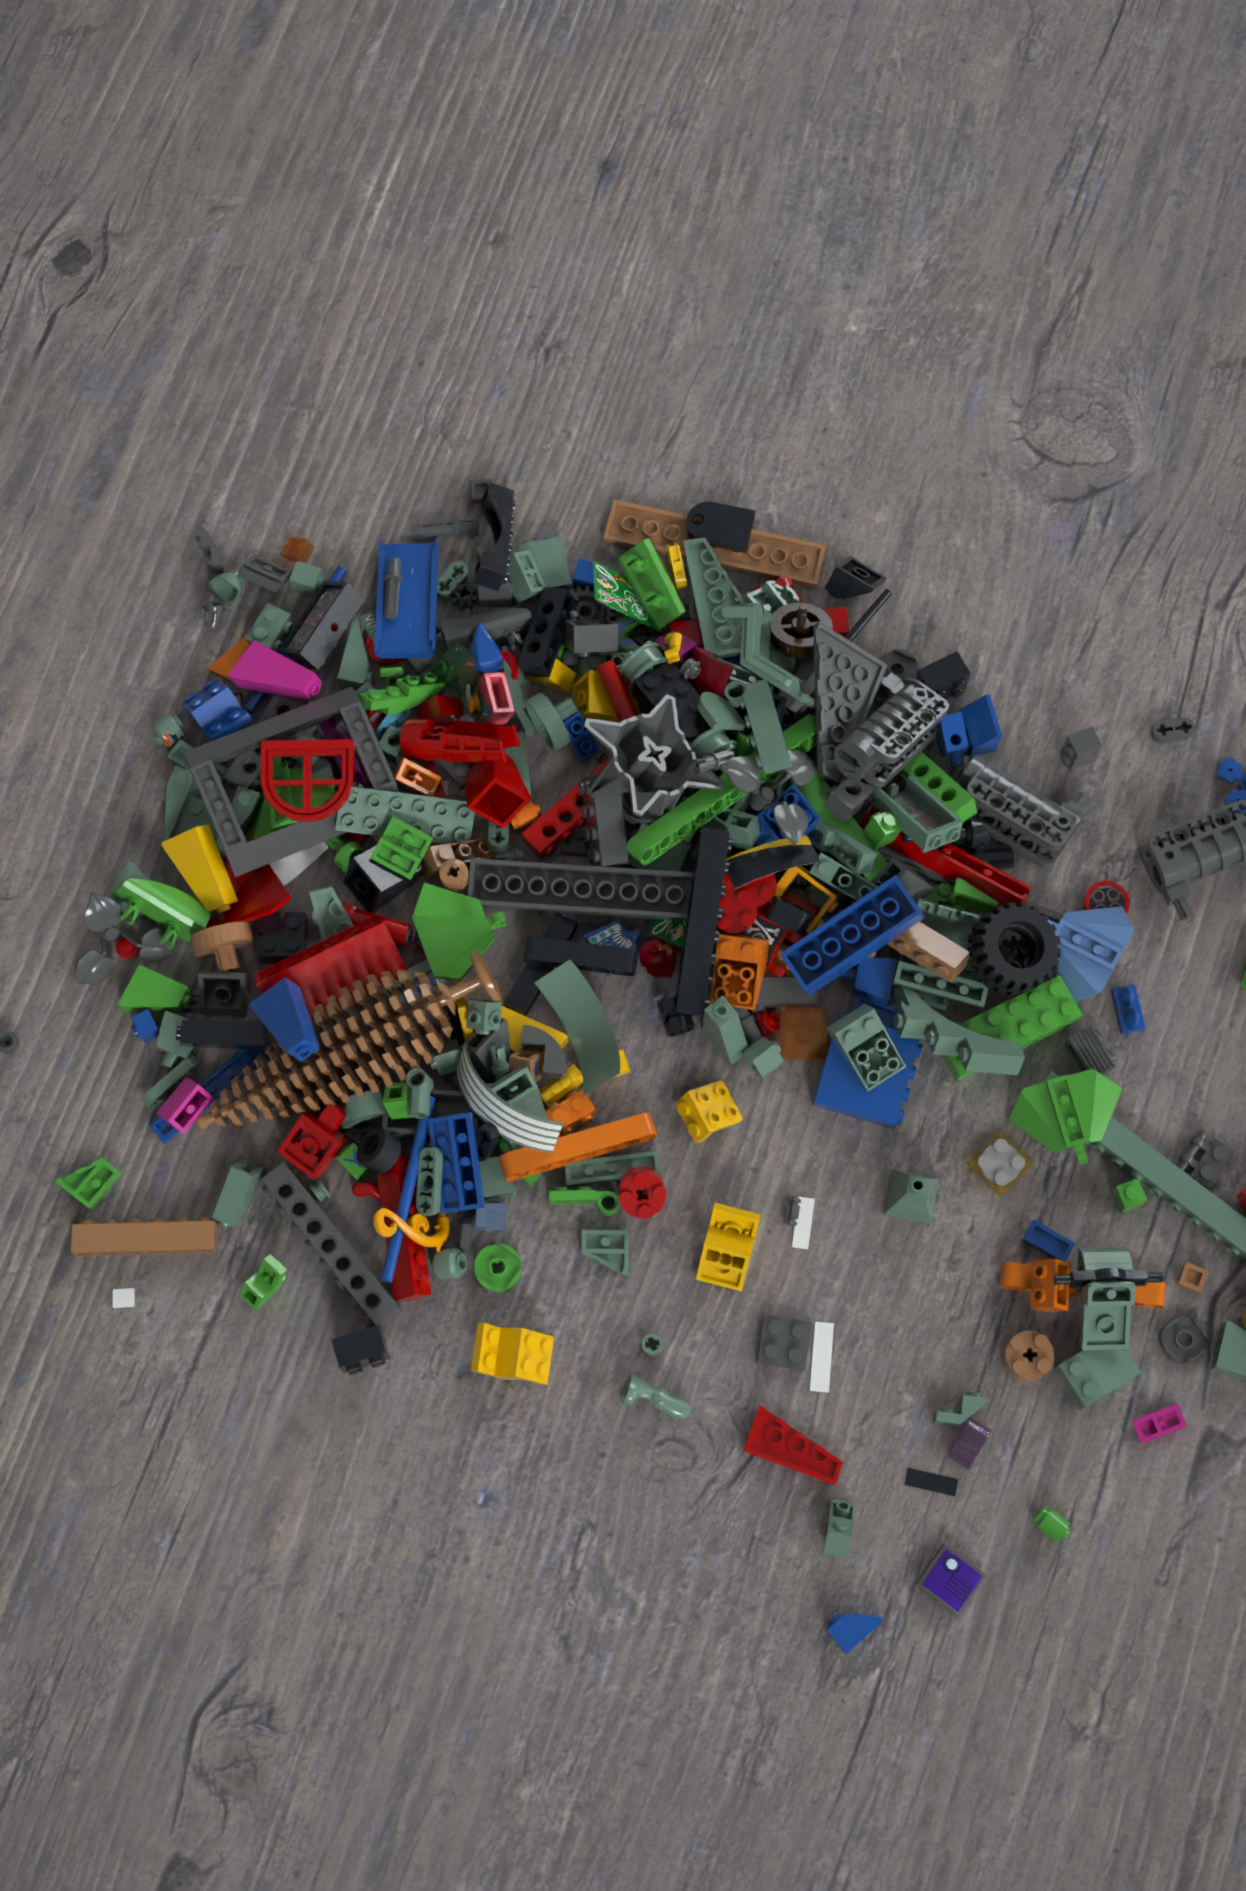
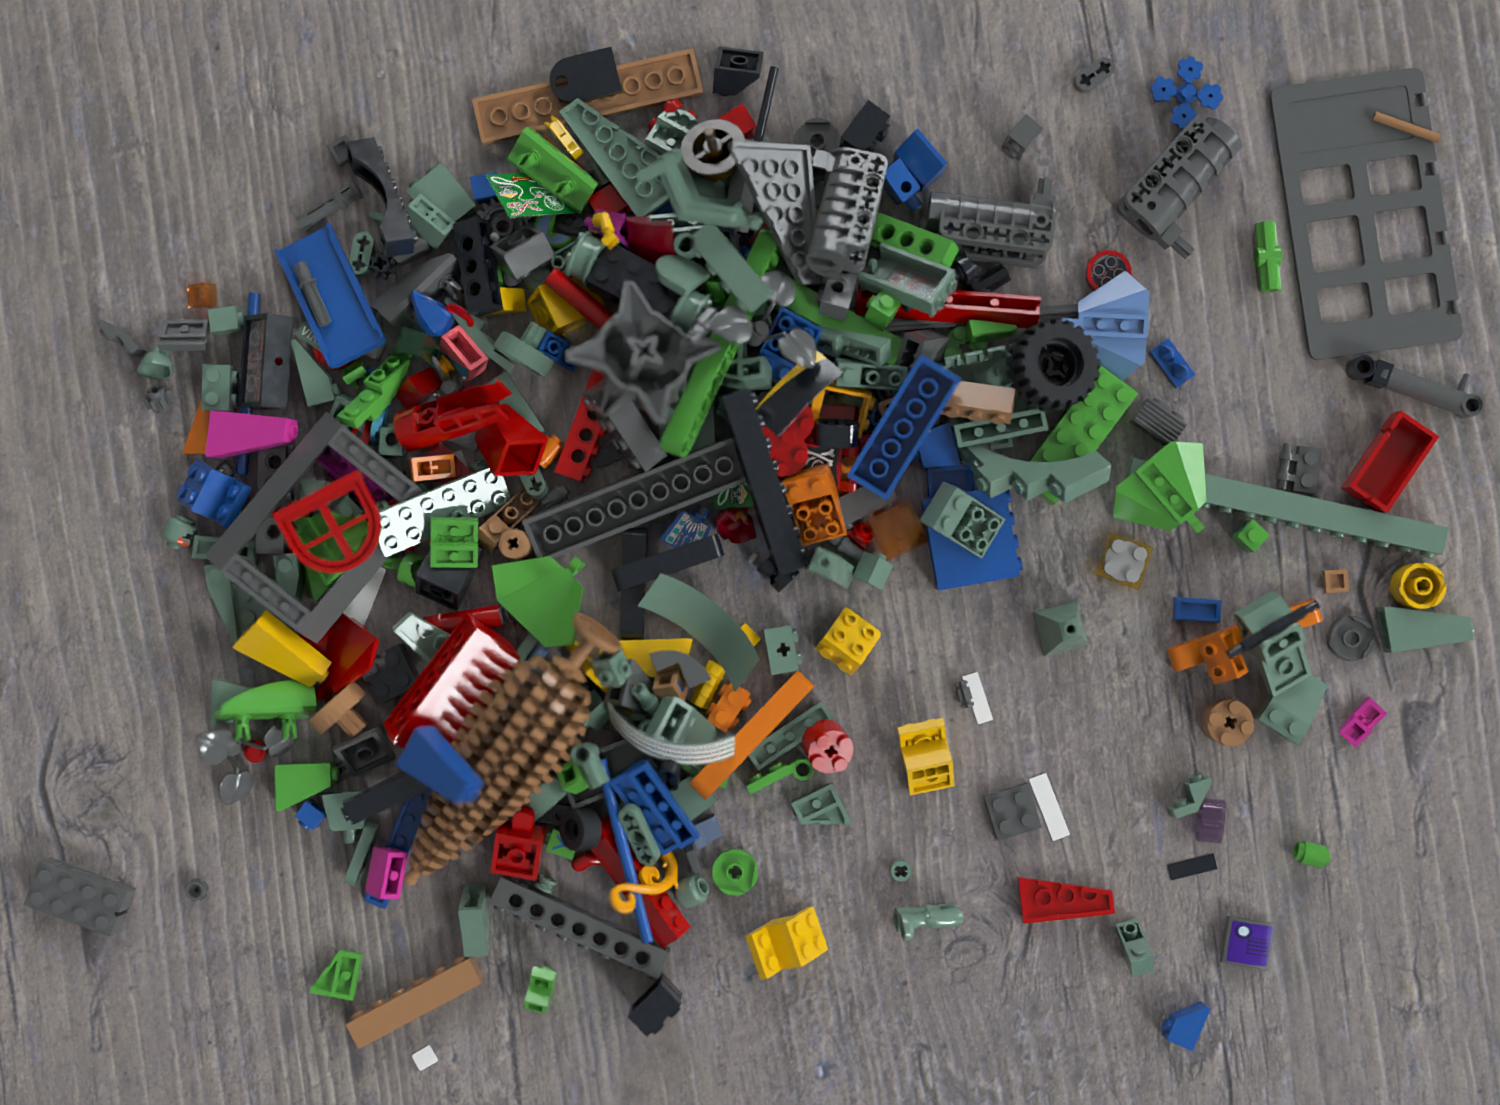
camera: 25 degrees left, 15 degrees up
(644, 1074) = (779, 663): none -> sand green brick
(690, 669) = (632, 242): dark grey plate -> none

